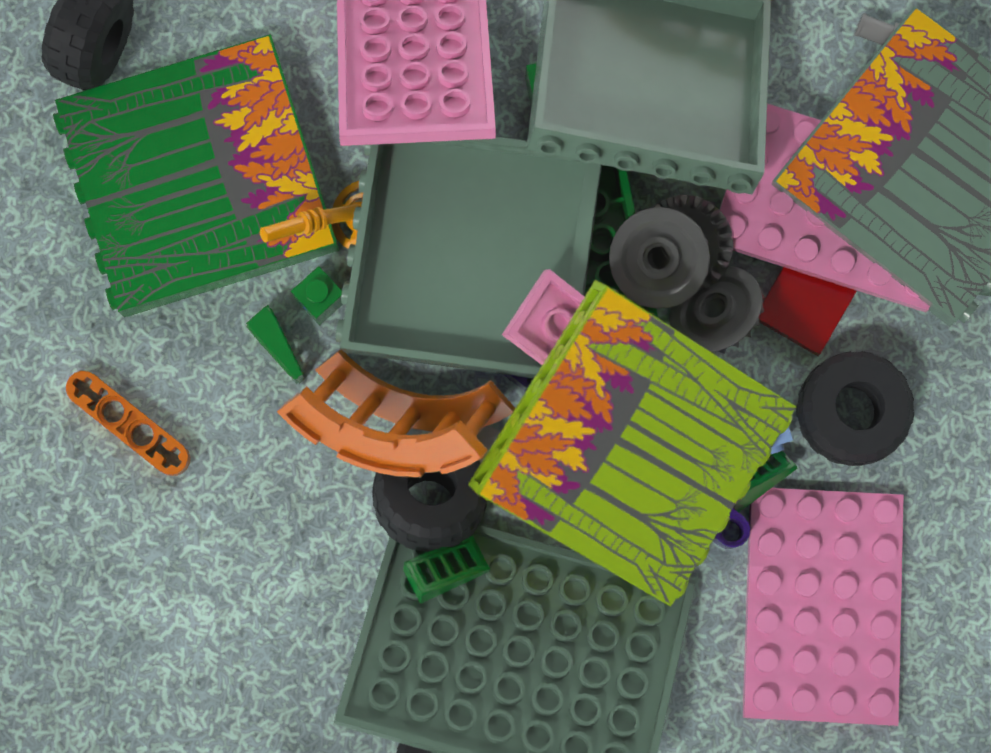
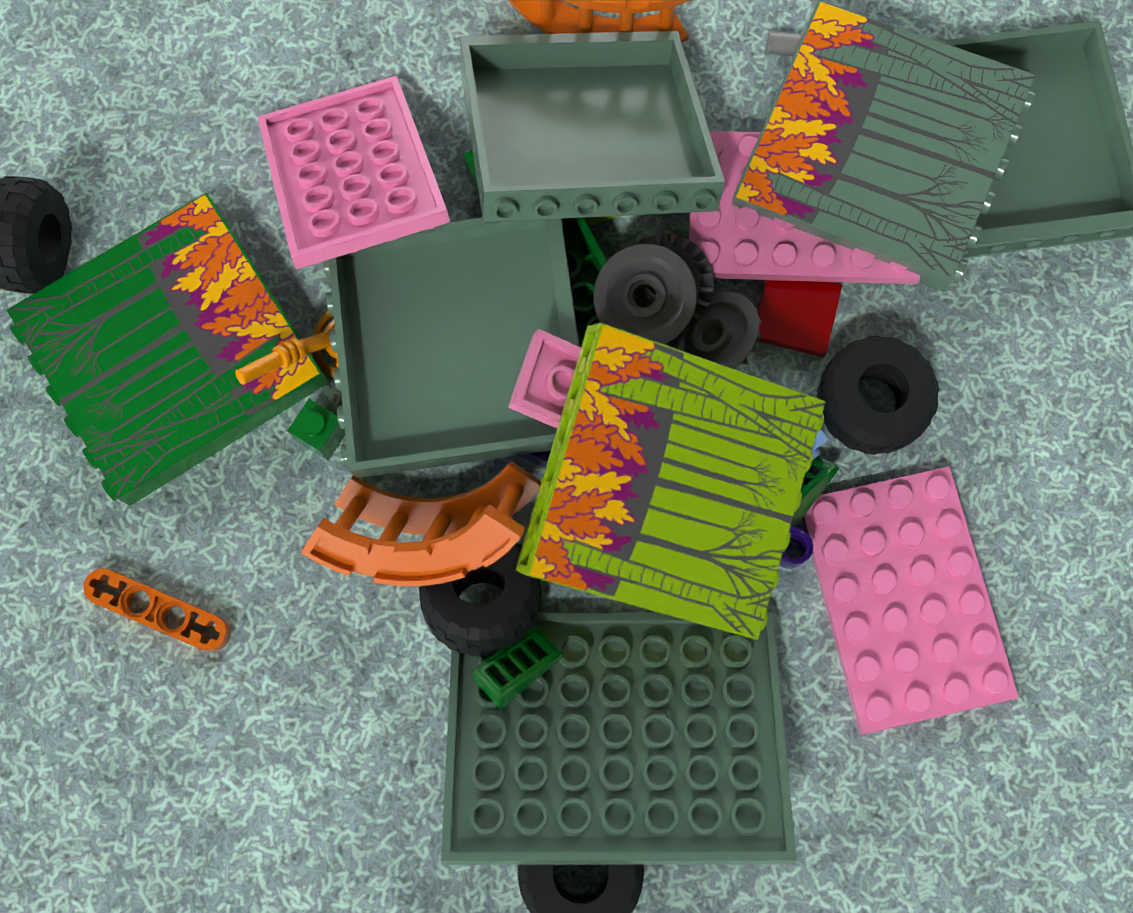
camera: 10 degrees left, 5 degrees down
(270, 335) = (279, 481): green slope -> none

